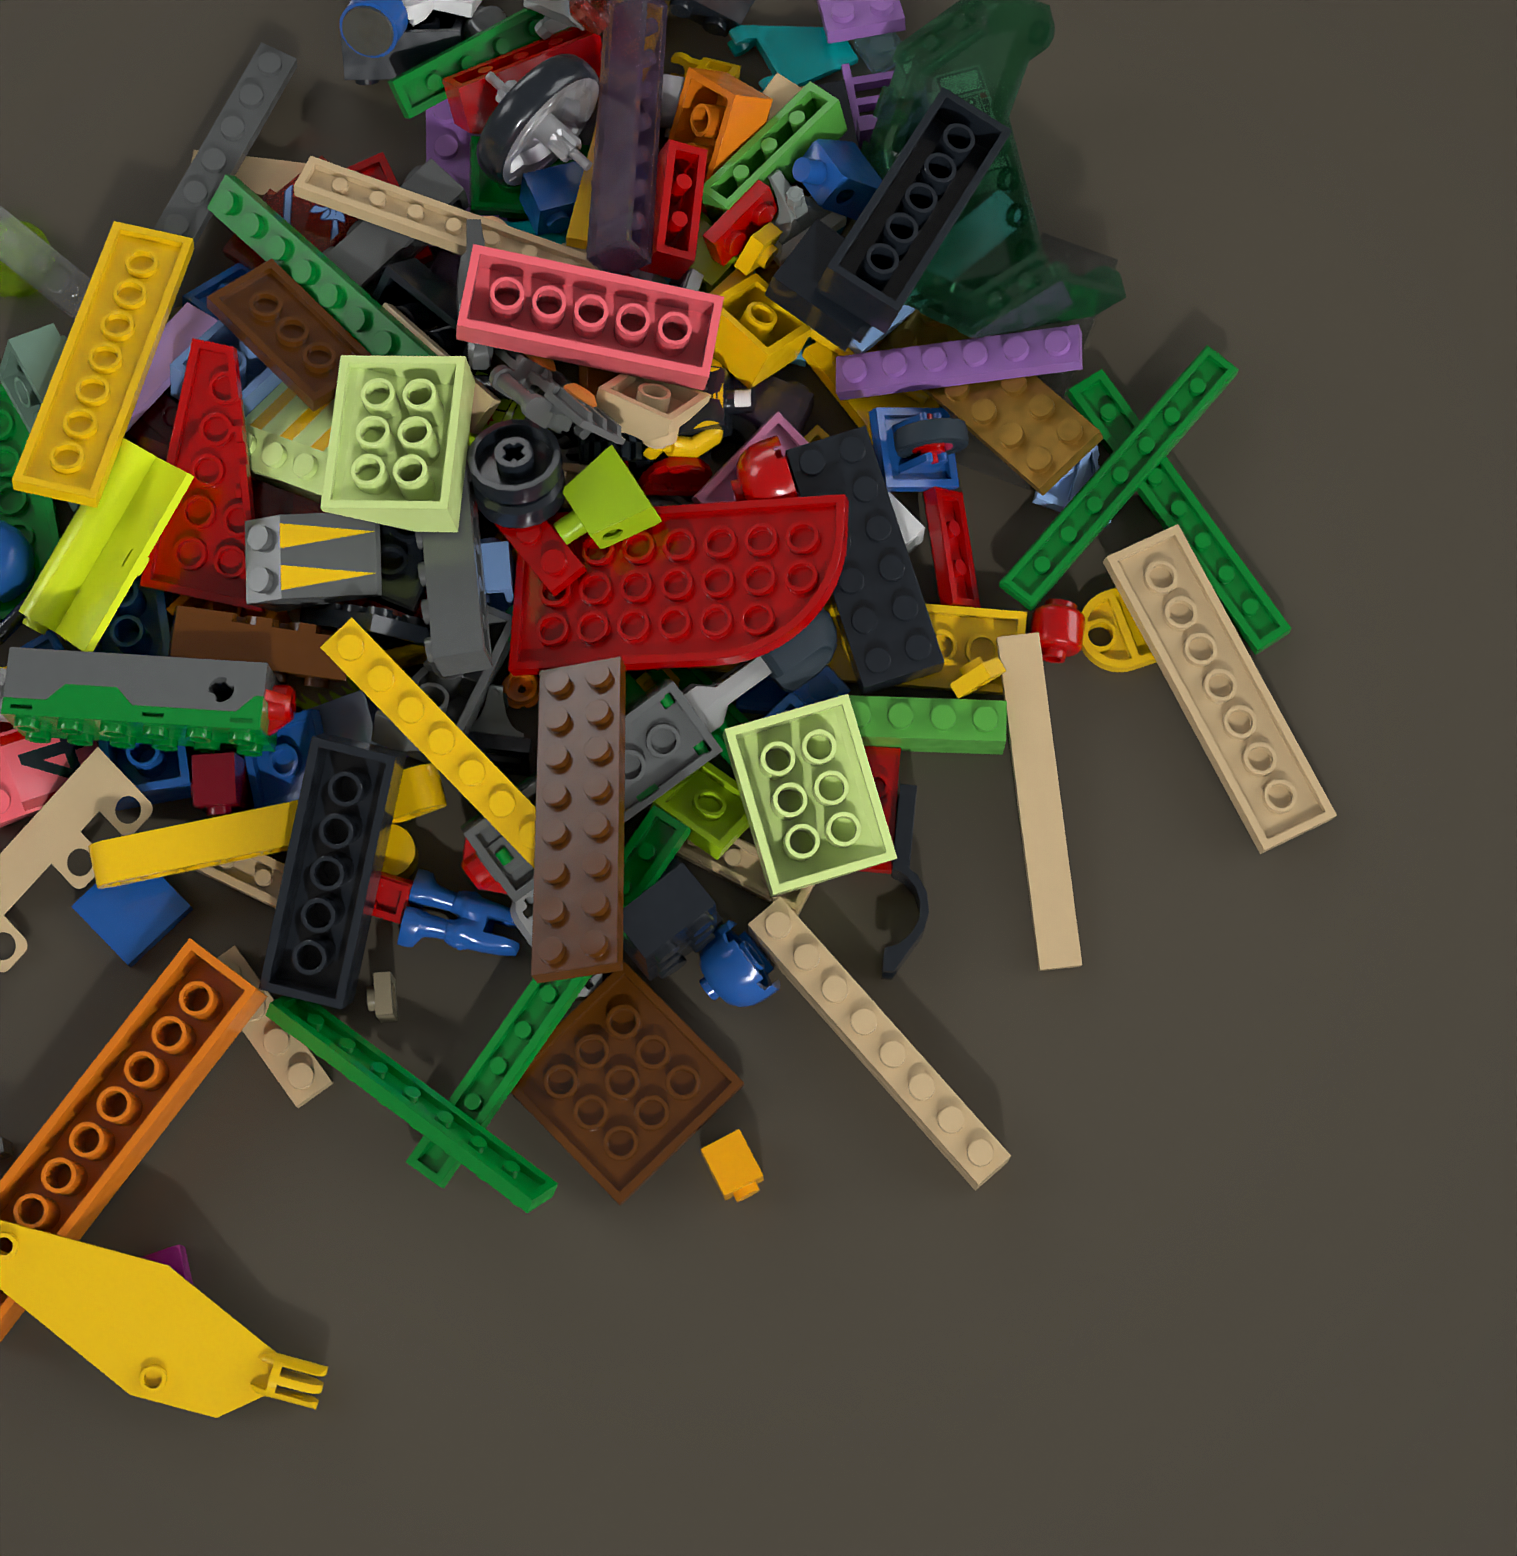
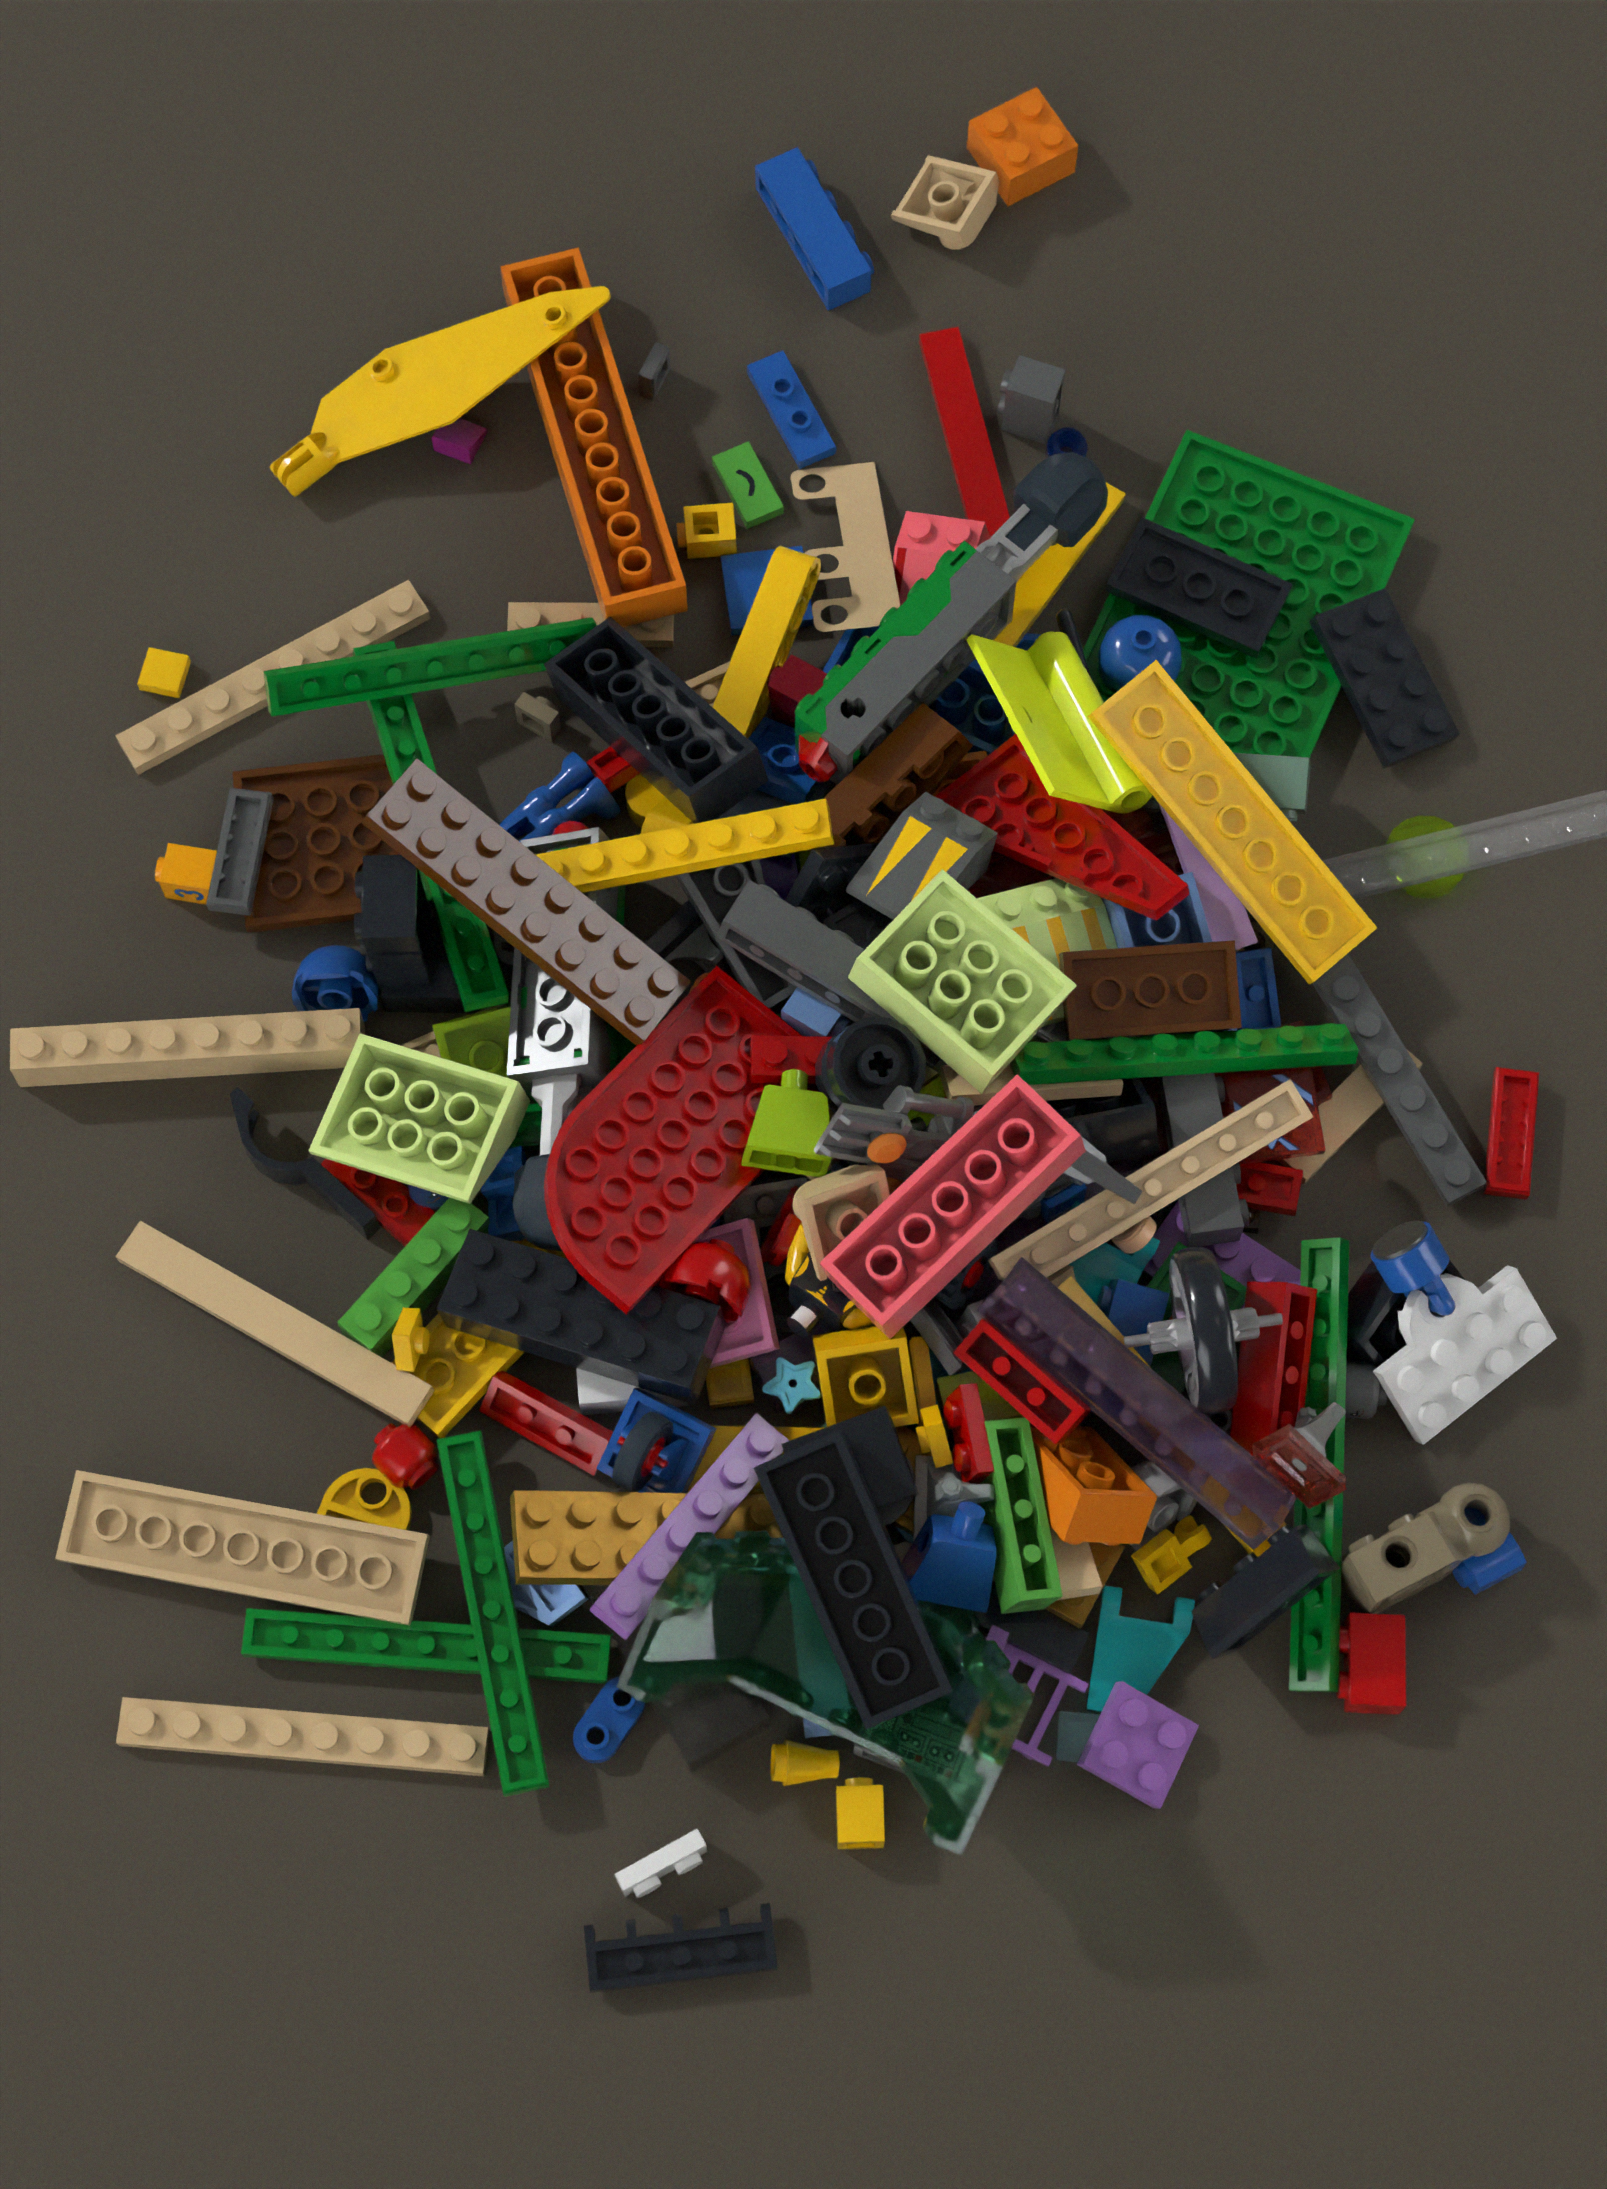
camera: 125 degrees right, 5 degrees down
(42, 996) = (747, 485): none -> bright green tile
(100, 981) = (708, 530): none -> yellow brick
(204, 58) = (1511, 1133): none -> red plate
(506, 1249) = (245, 689): none -> tan plate
(570, 1344) = (164, 672): none -> yellow tile
(687, 1131) = (240, 851): none -> dark grey plate
(792, 396) = (788, 1395): none -> medium azure plate
(1050, 207) = (802, 1763): none -> yellow cone
(1053, 142) = (860, 1814): none -> yellow brick
(1124, 357) = (611, 1719): none -> blue plate
(1192, 244) = (679, 1855): none -> white plate
(1239, 190) = (680, 1954): none -> black hinge
(1308, 550) = (303, 1736): none -> tan plate

